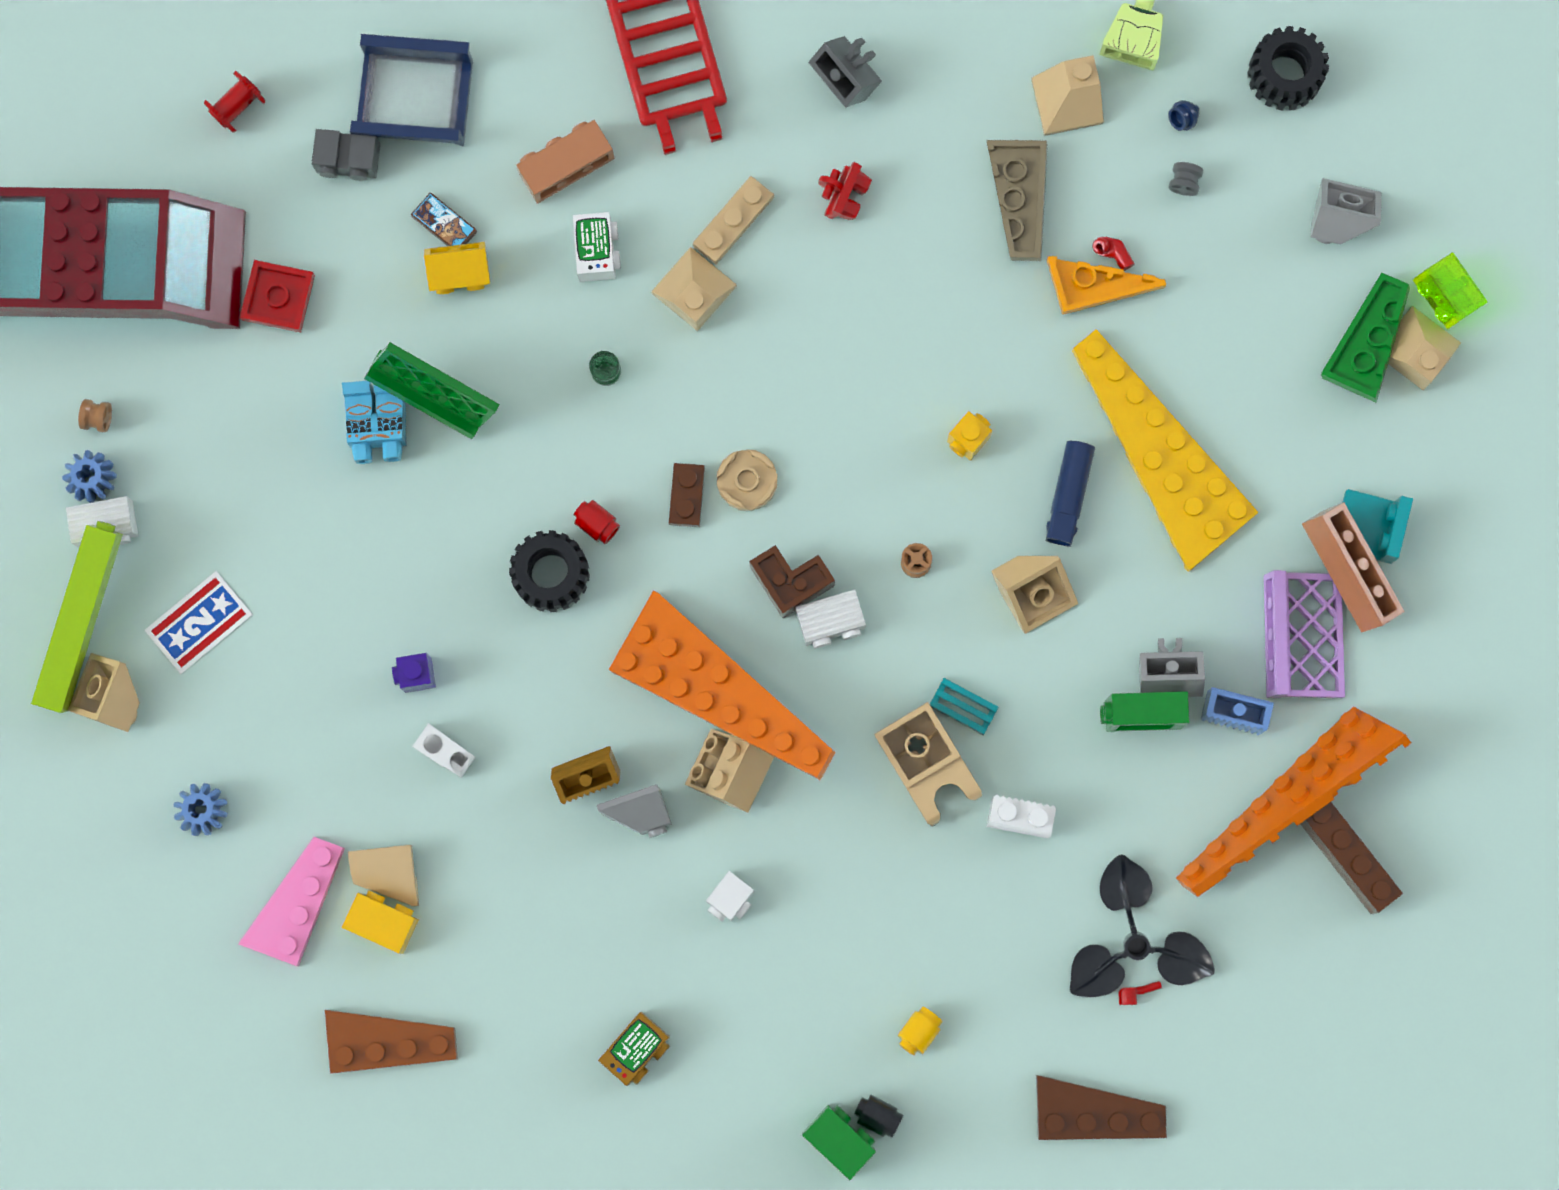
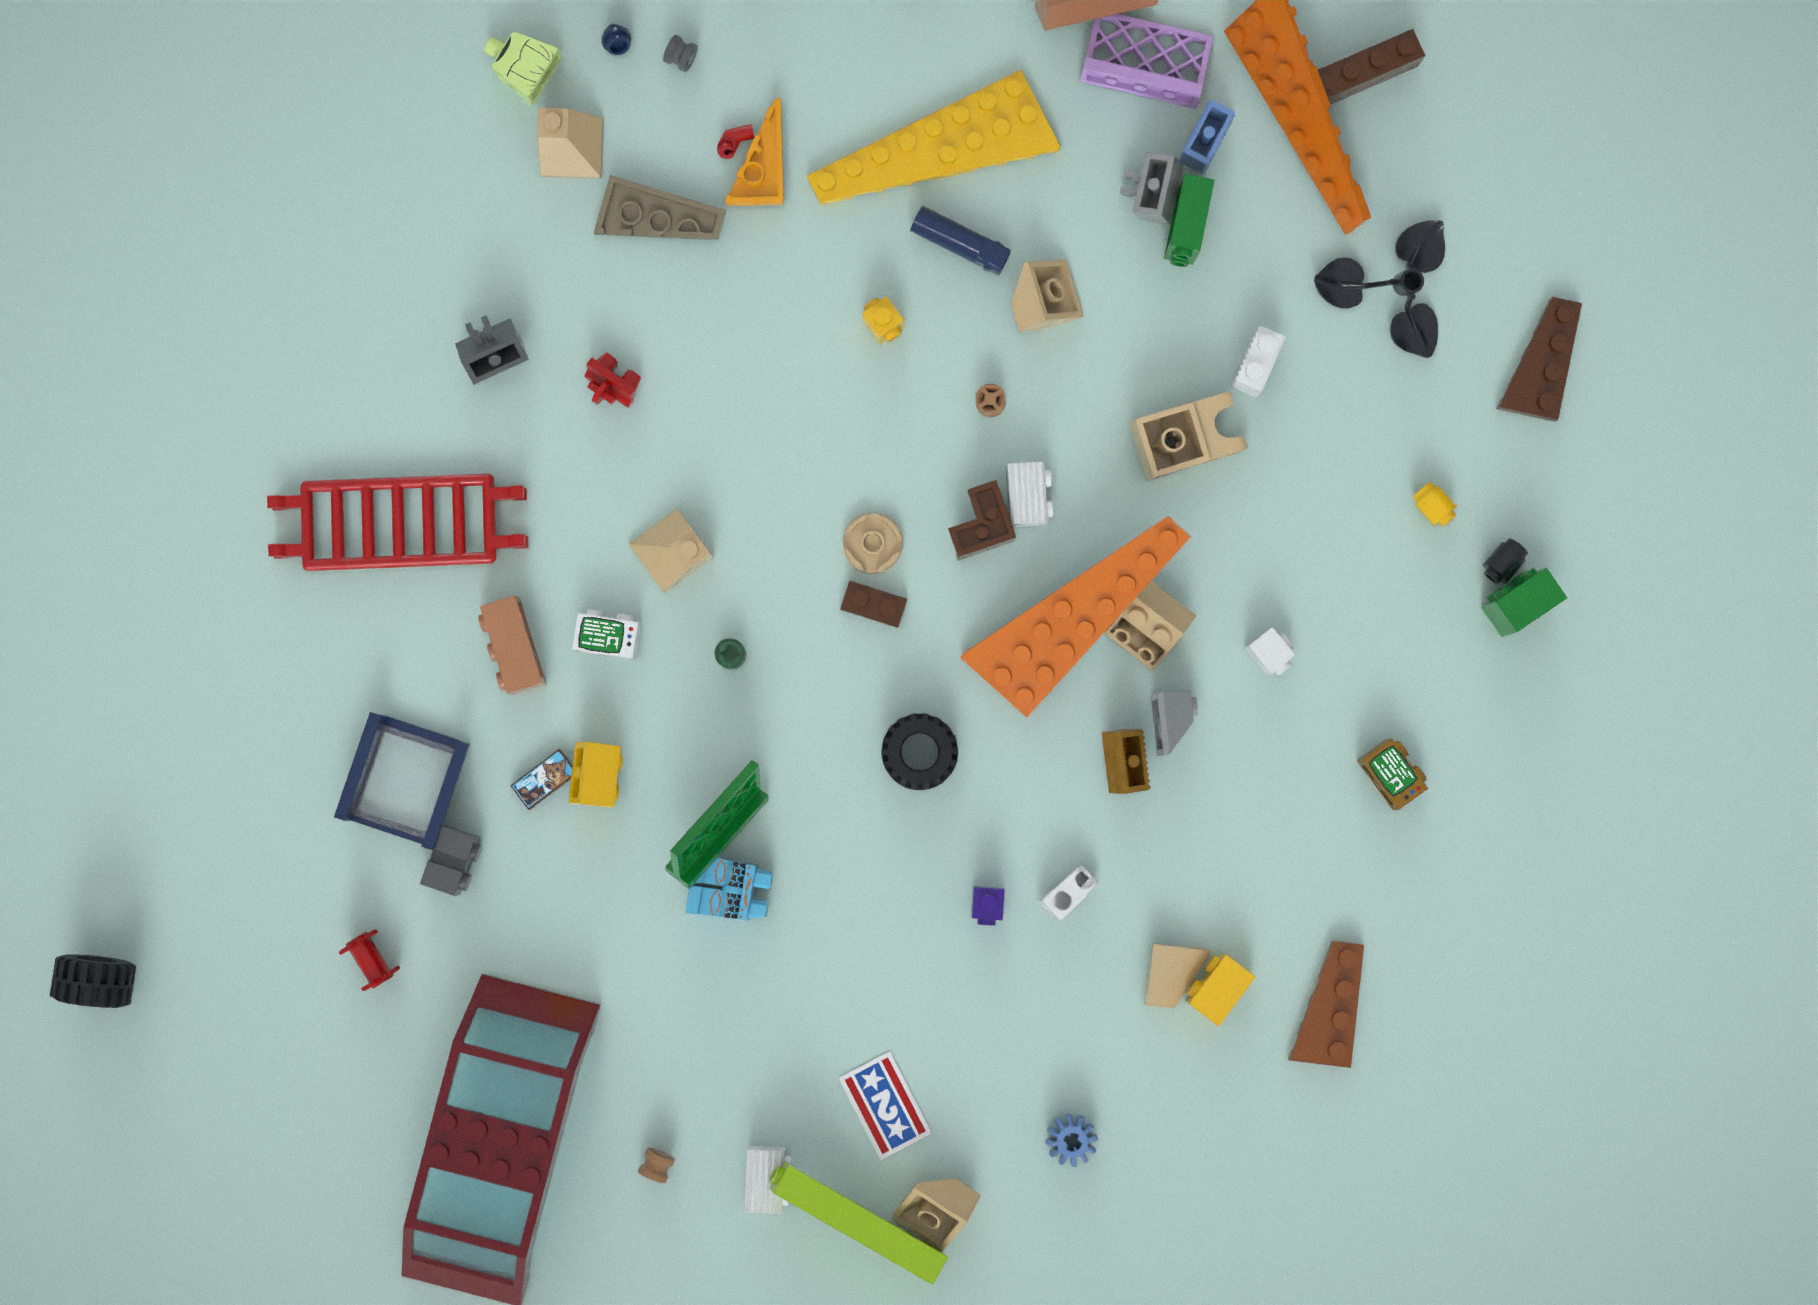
camera: 80 degrees left, 5 degrees up
(96, 483) = (707, 1188): medium blue gear -> none
(277, 296) = (578, 959): red plate -> none
(293, 909) = (1187, 1071): bright pink wing -> none
(596, 521) = (880, 696): red brick -> none
(733, 220) = (611, 496): tan plate -> none
(970, 696) = (1156, 371): teal tile -> none
(1128, 995) = (1443, 305): red hand -> none

